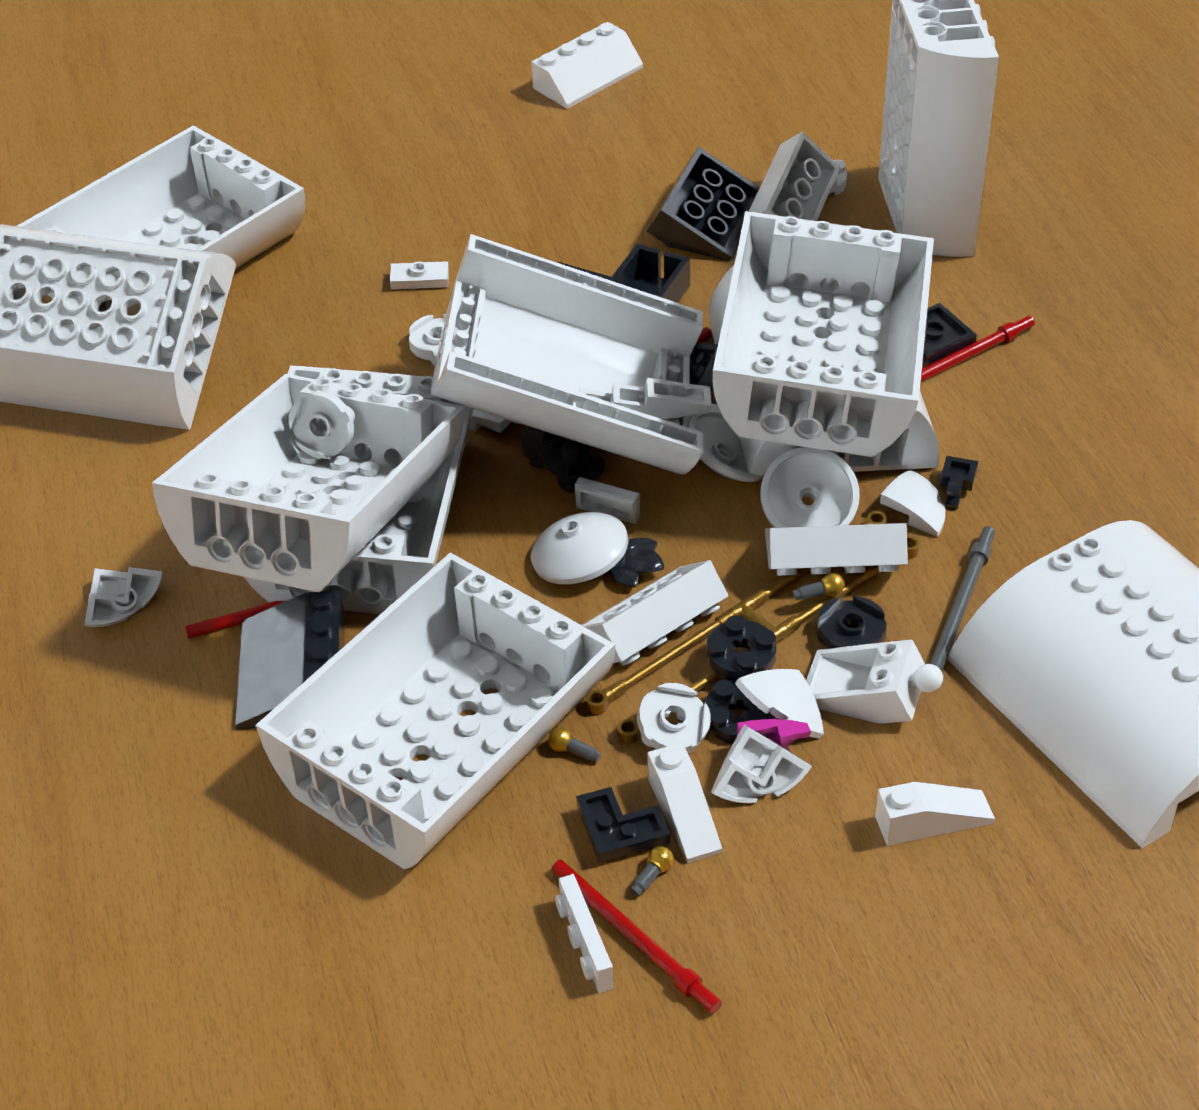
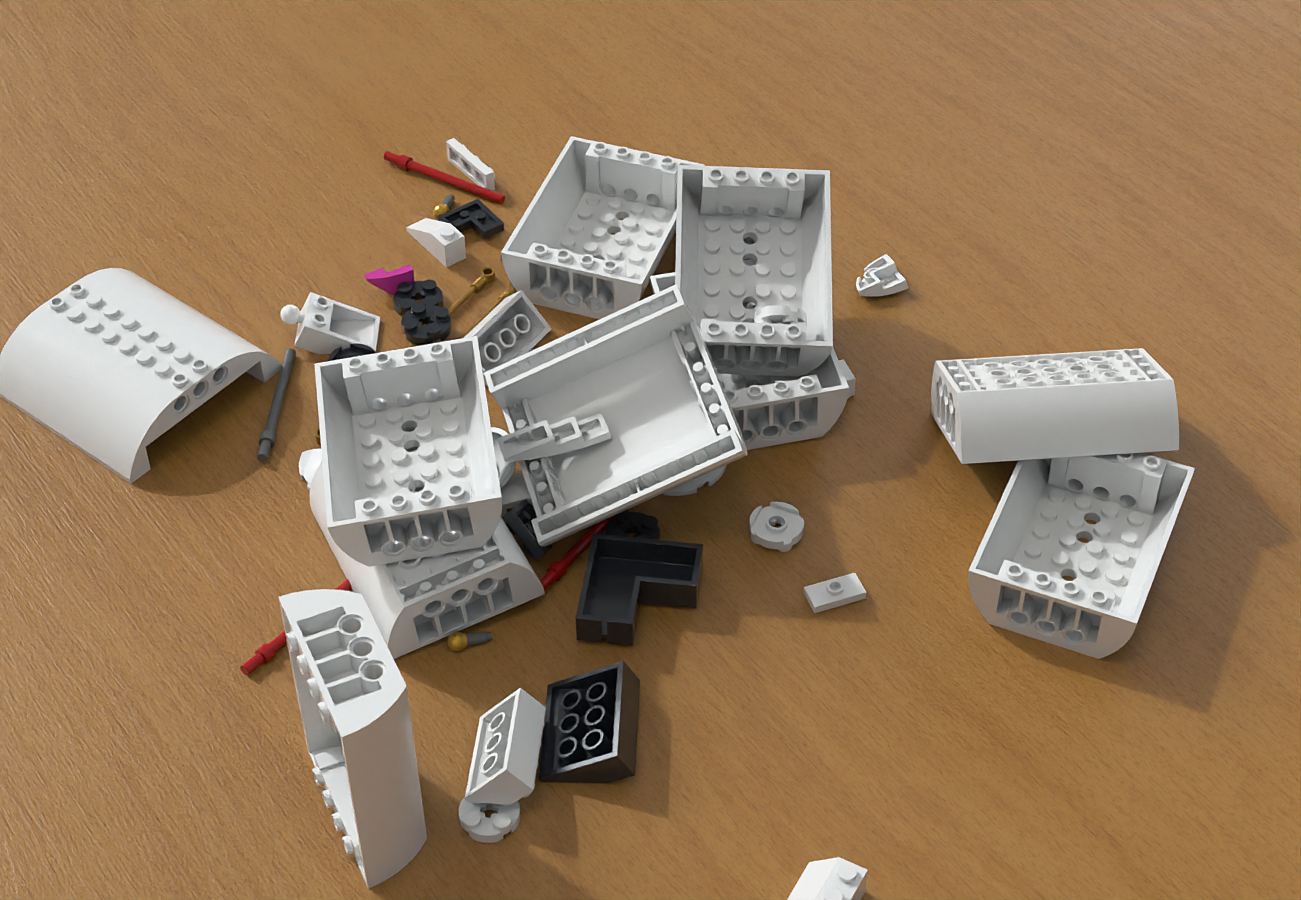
camera: 160 degrees right, 0 degrees up
(675, 698) = (458, 274): white plate -> none
(757, 769) = (402, 258): white brick -> none
(784, 696) = (387, 297): white brick -> none
(929, 810) = (280, 263): white slope -> none
(957, 475) = (293, 493): black plate -> none

